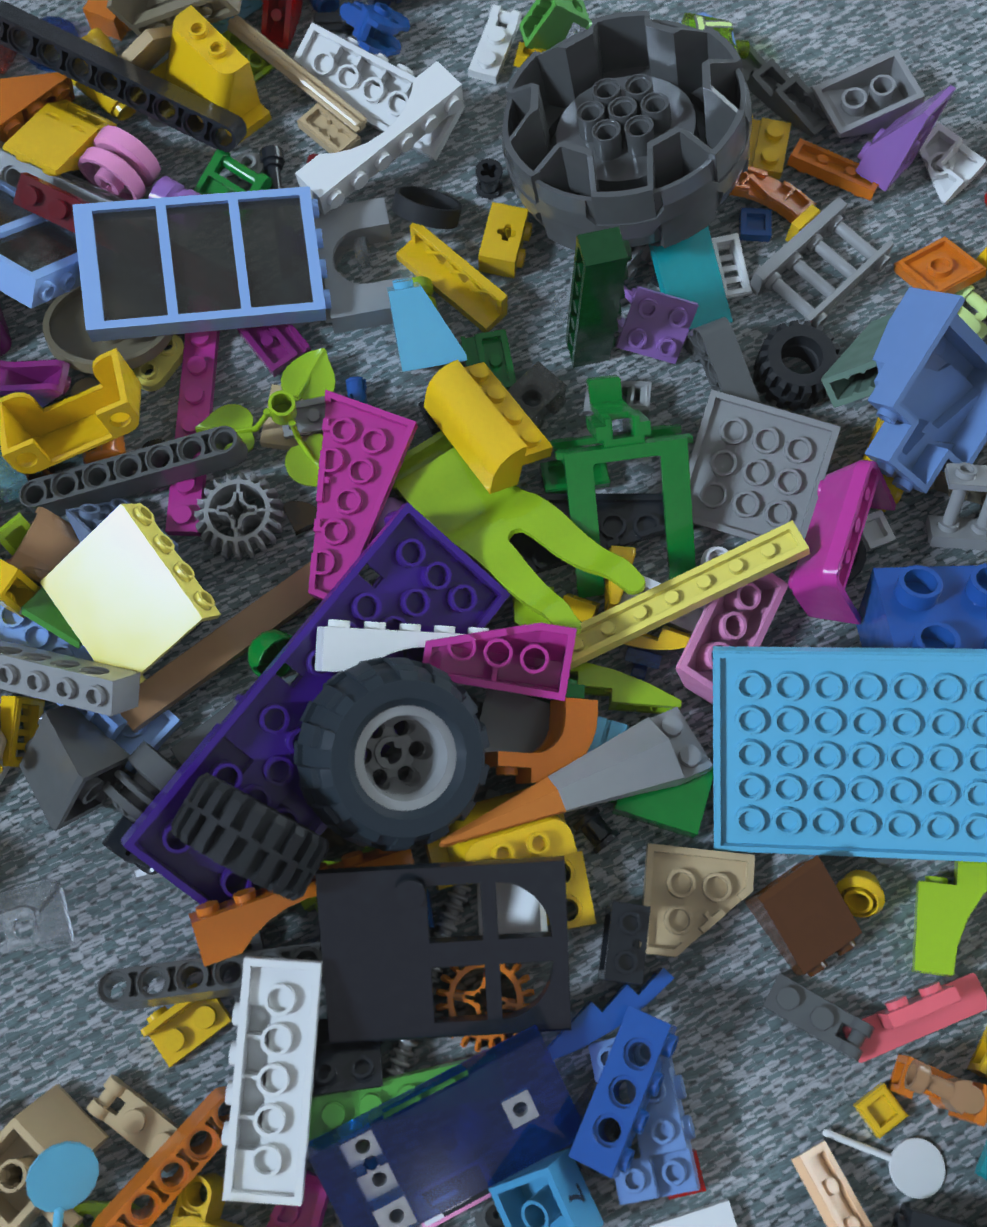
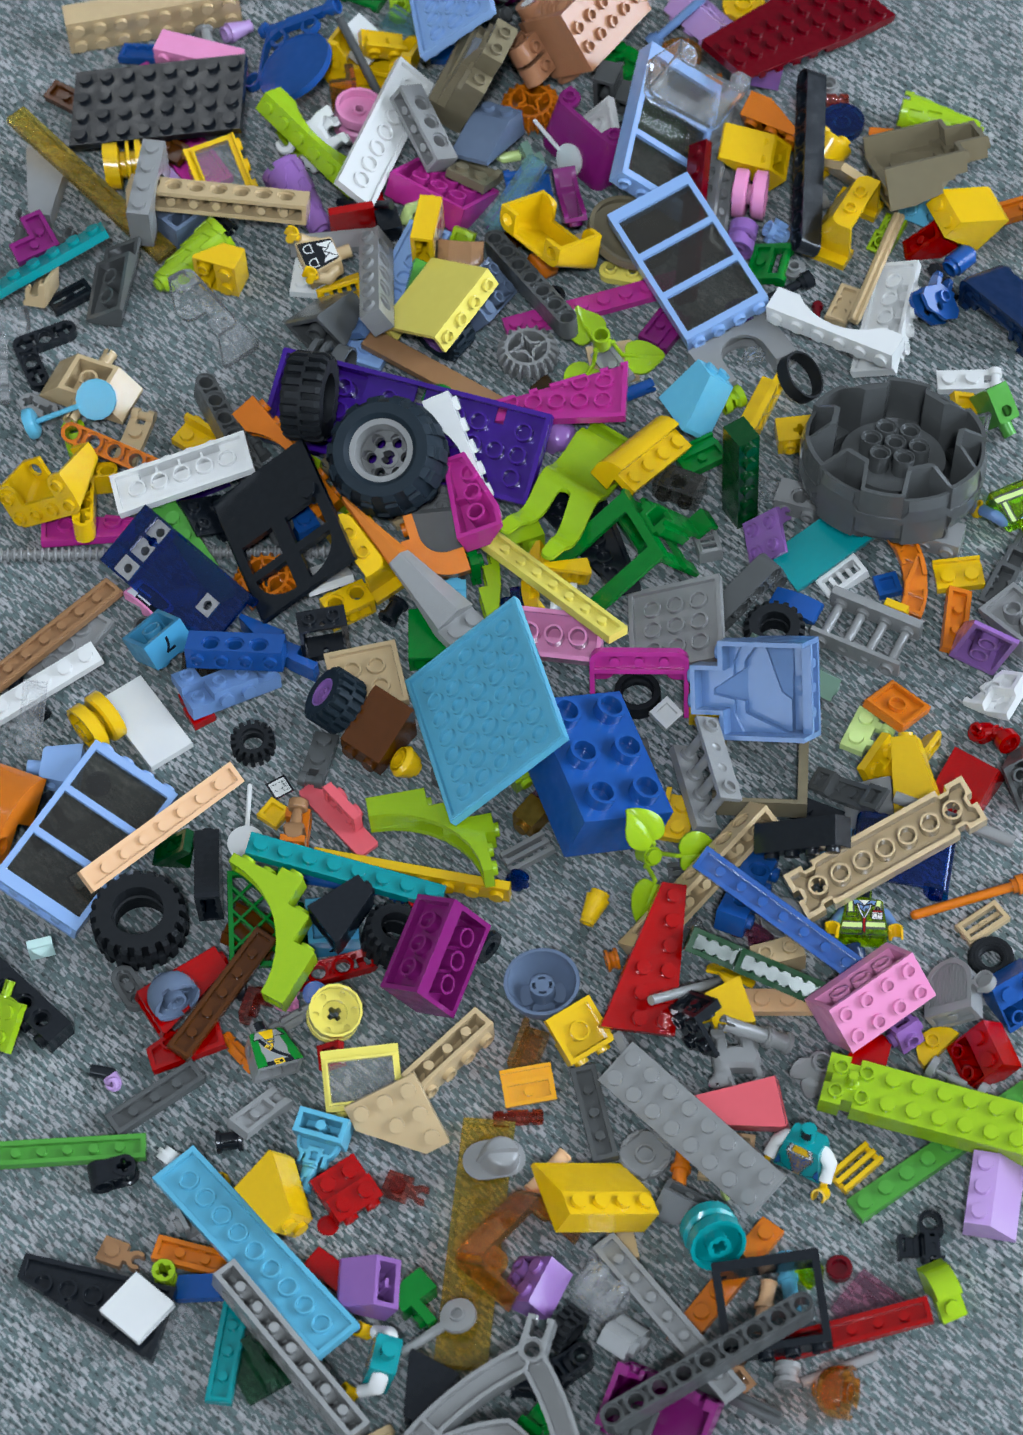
camera: 75 degrees right, 15 degrees down
(187, 164) = (775, 231): none -> light blue gear
(746, 963) = (335, 700): none -> black wheel
(757, 325) = (805, 605): none -> blue slope
(780, 1112) = (252, 731): none -> black tyre
(833, 1086) = (279, 787): none -> sticker

